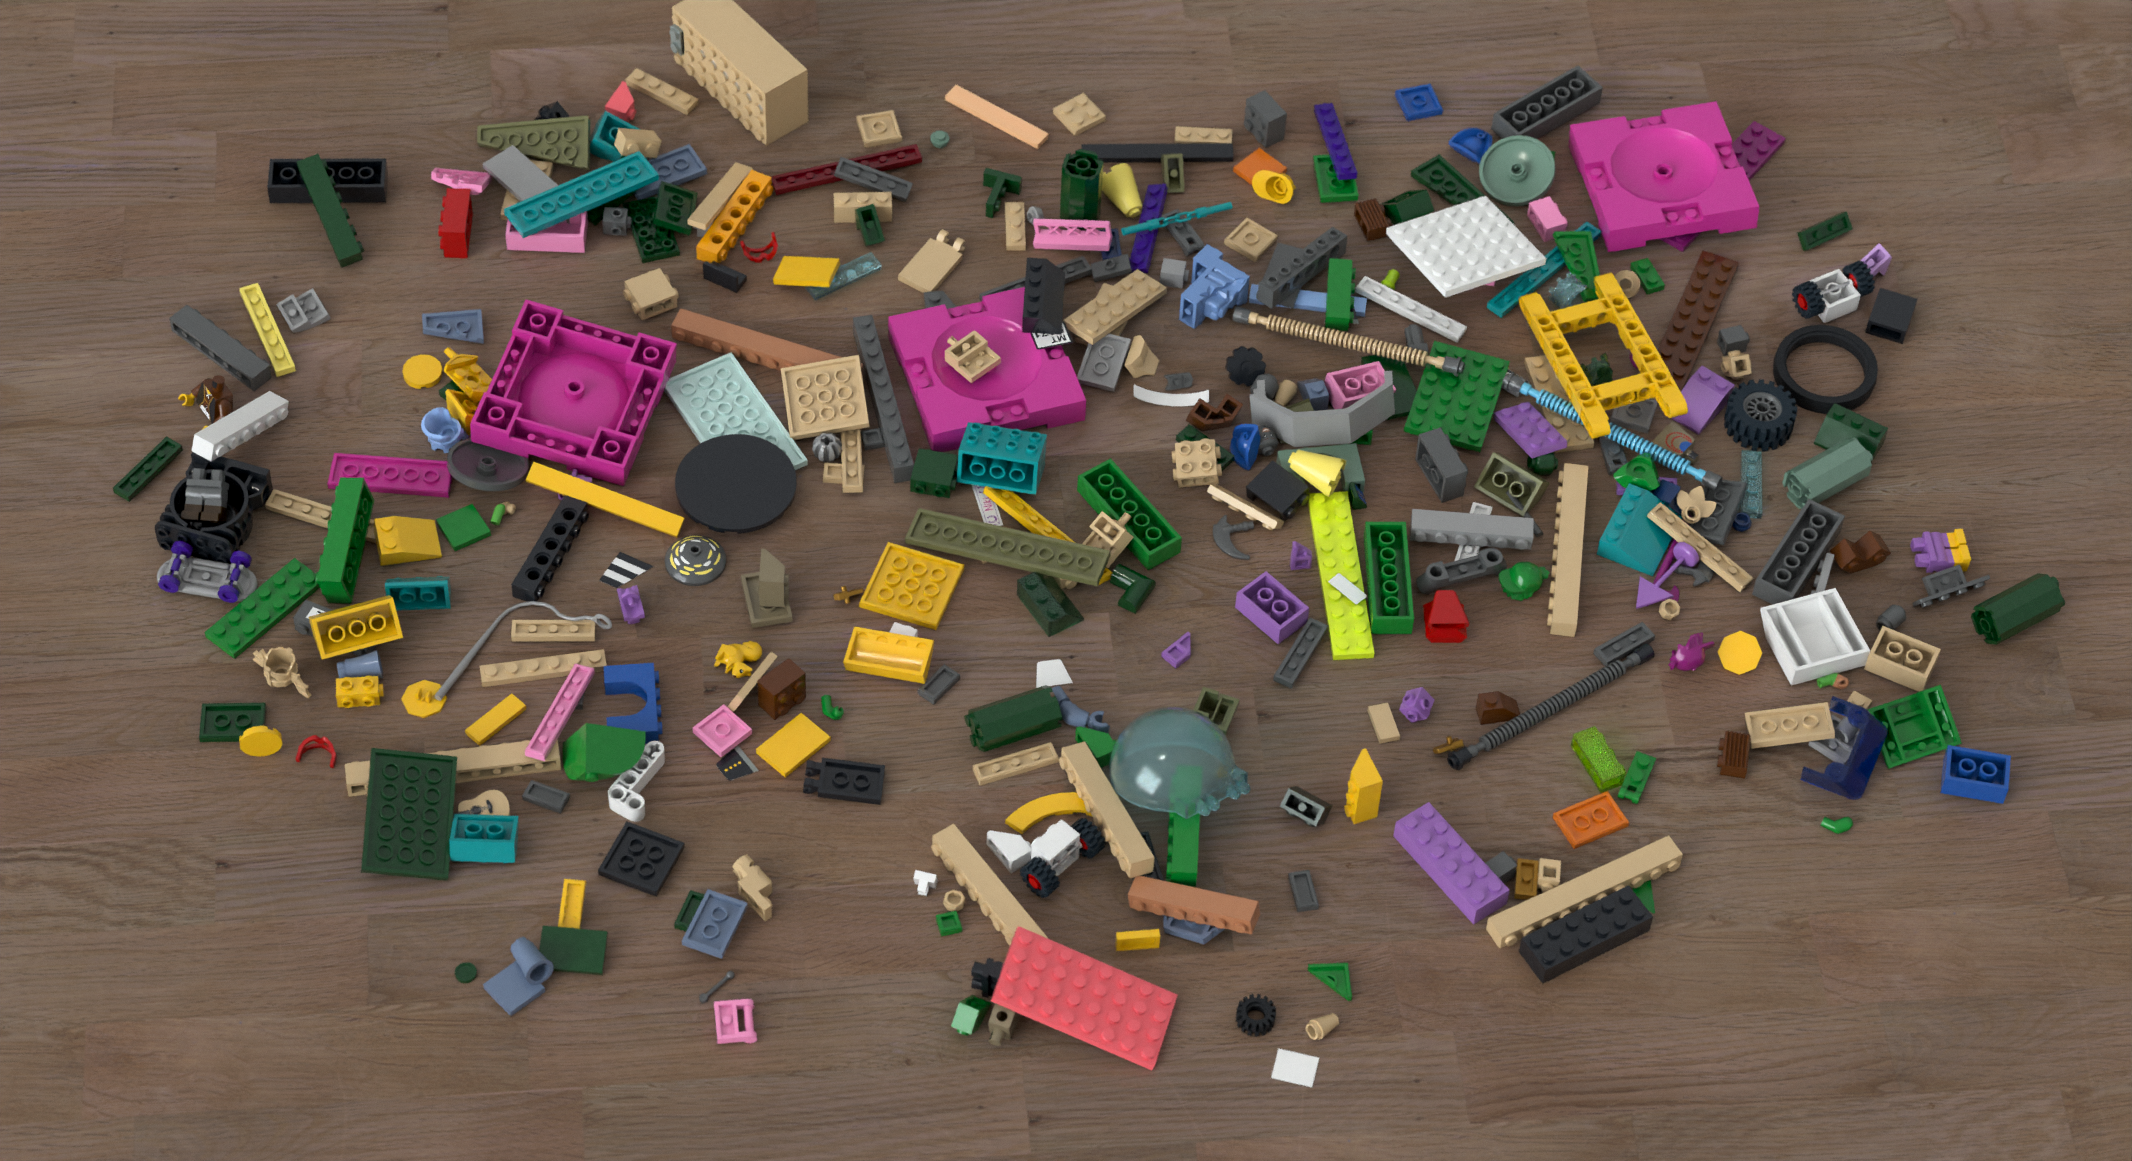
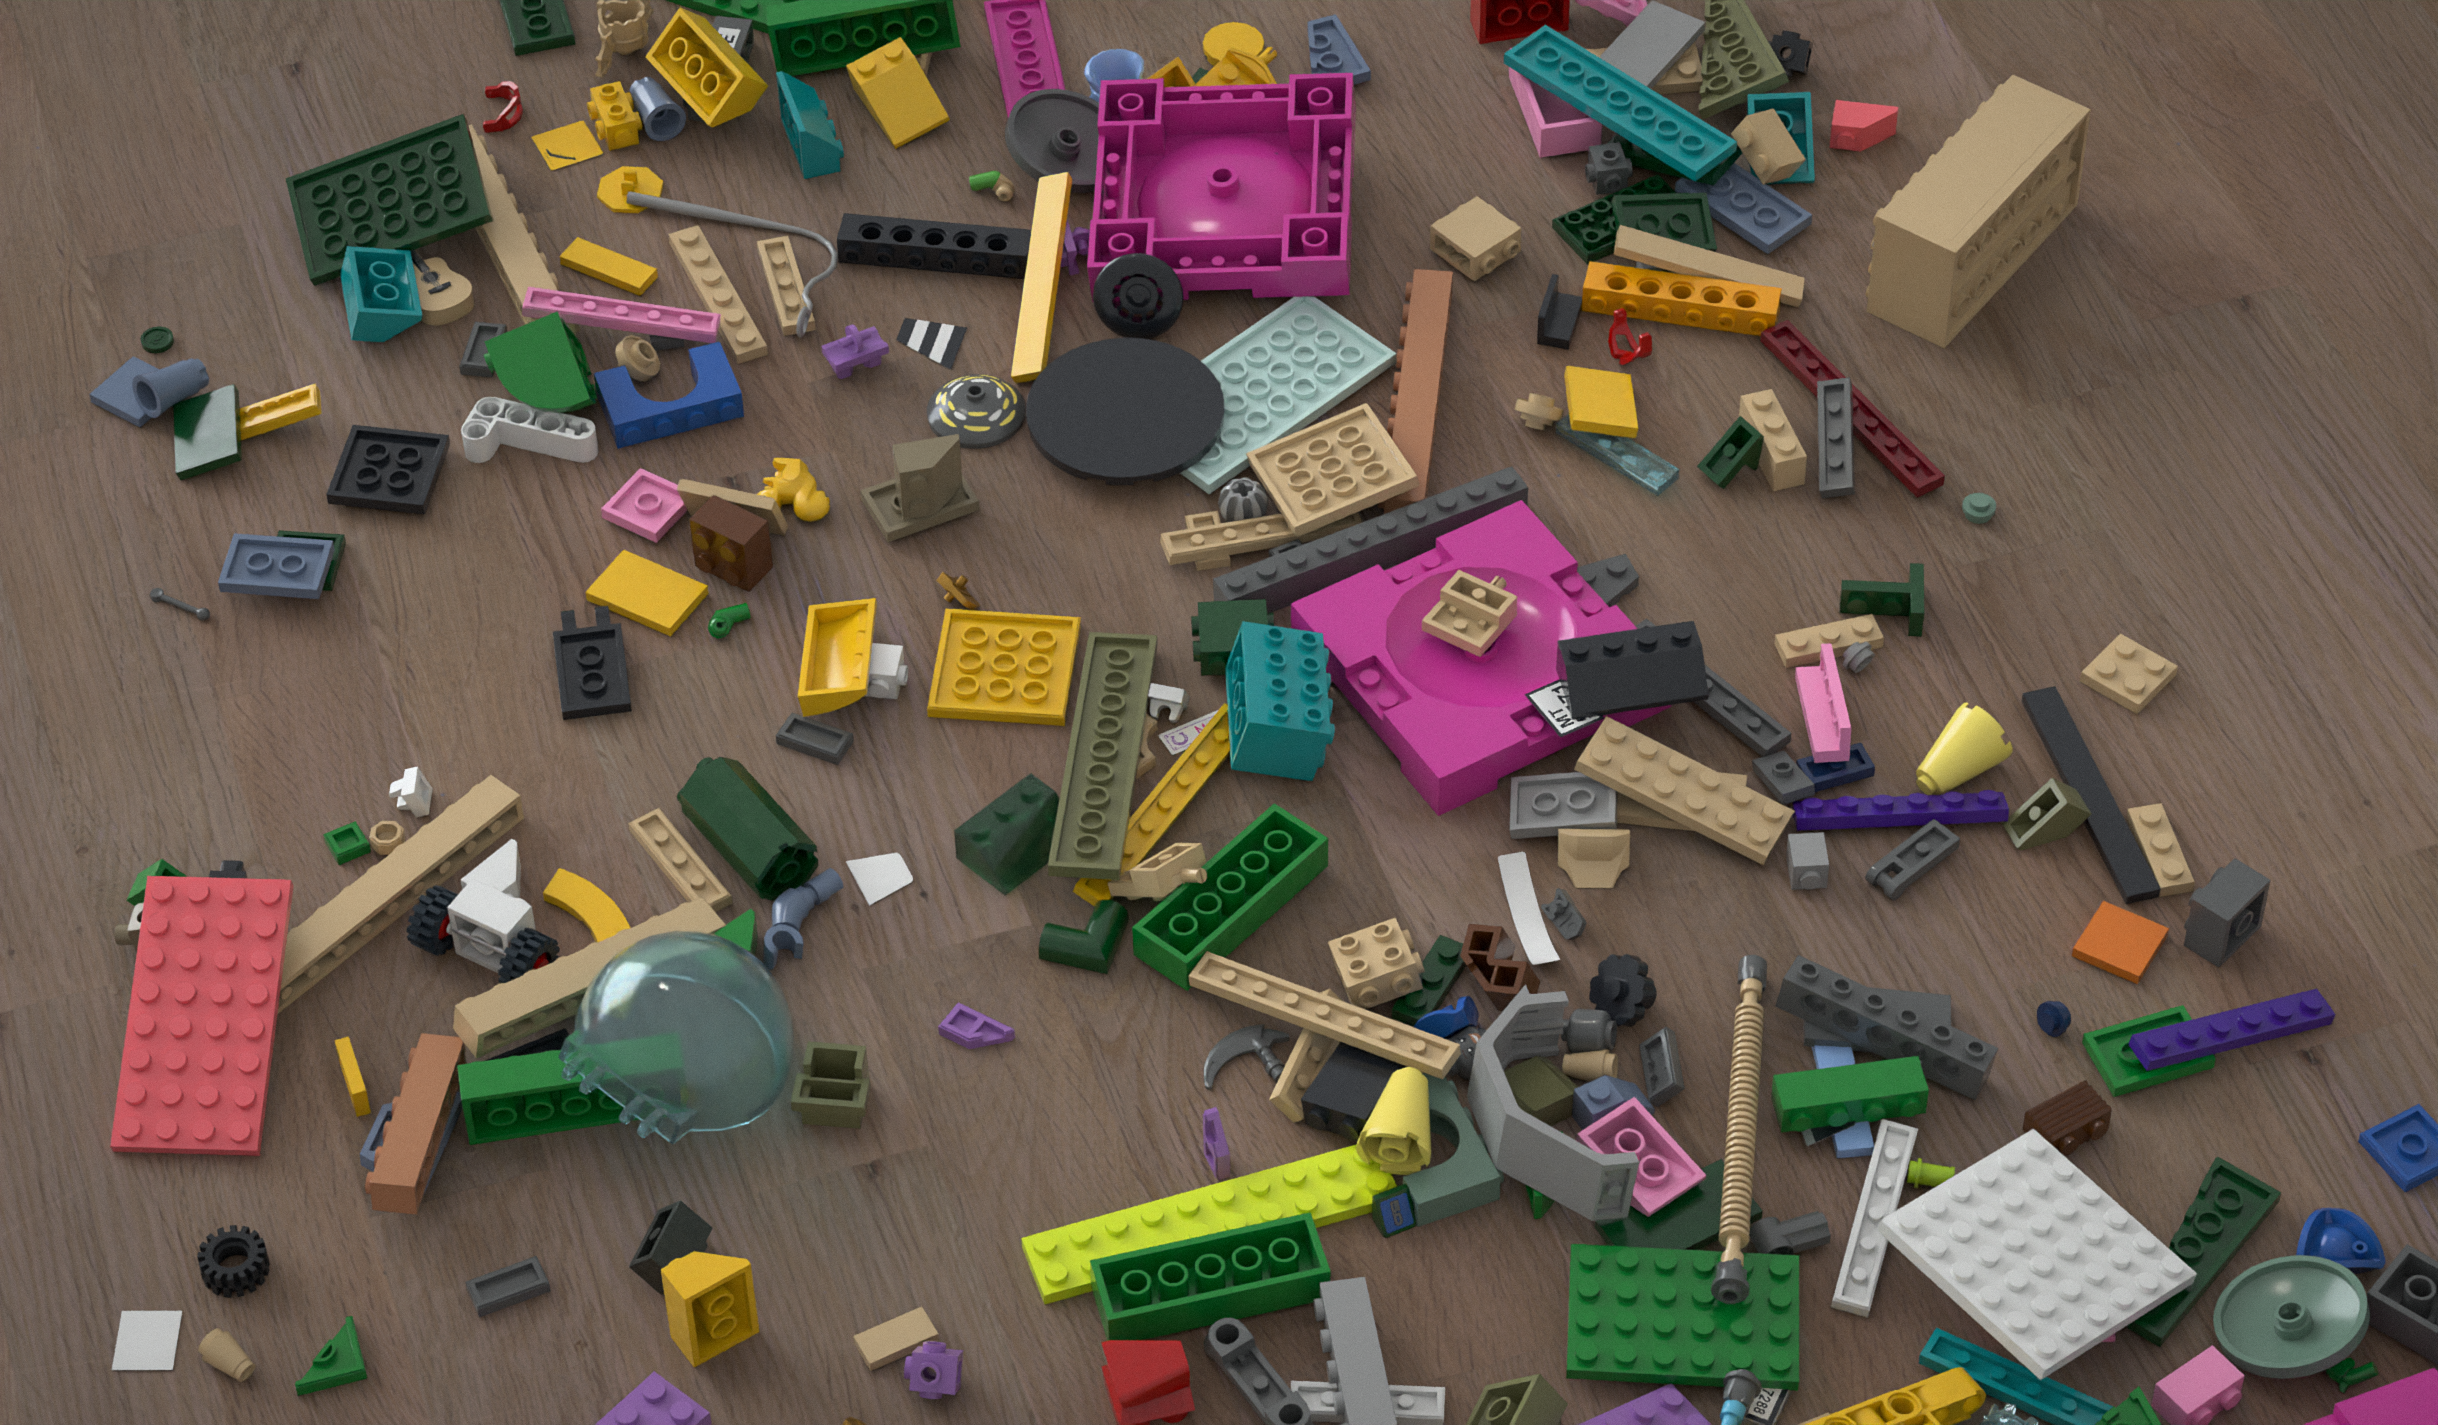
camera: 80 degrees right, 5 degrees down
(260, 741) = (491, 38): yellow tile -> none
(366, 725) = (567, 145): none -> yellow sticker
(463, 527) = (953, 154): green tile -> none
(594, 713) = (638, 358): none -> tan plate
(649, 454) = (1138, 296): none -> black wheel
(661, 91) = (1926, 140): tan plate -> none
(727, 1021) = (114, 624): bright pink plate -> none
(736, 764) = (597, 540): black sticker -> none
(754, 886) = (360, 600): tan plate -> none
(802, 300) = (1538, 411): none -> tan plate
(879, 128) = (1967, 431): tan tile -> none
(932, 263) = (1697, 555): tan tile -> none
(970, 511) = (1167, 697): none -> white tile
(996, 116) = (2067, 569): light nougat tile -> none
(1081, 186) = (1897, 672): dark green brick -> none
(1199, 213) = (1958, 865): teal piece -> none
(1213, 288) = (1778, 911): medium blue brick -> none
(1235, 486) = (1325, 1015): none -> tan plate
(1251, 239) = (1945, 960): tan tile -> none
(1272, 607) = (1088, 1125): medium lavender brick -> none
(1273, 186) = (2079, 964): yellow piece -> none
(1293, 366) = (1661, 1066): none -> dark grey plate
(1300, 653) = (1013, 1190): dark grey plate -> none
(1305, 207) = (2053, 1018): none -> dark blue plate
(1347, 588) = (1171, 1224): white sticker -> none
(1408, 206) = (2122, 1167): dark green slope -> none
(1441, 464) = (1495, 1311): dark grey brick -> none

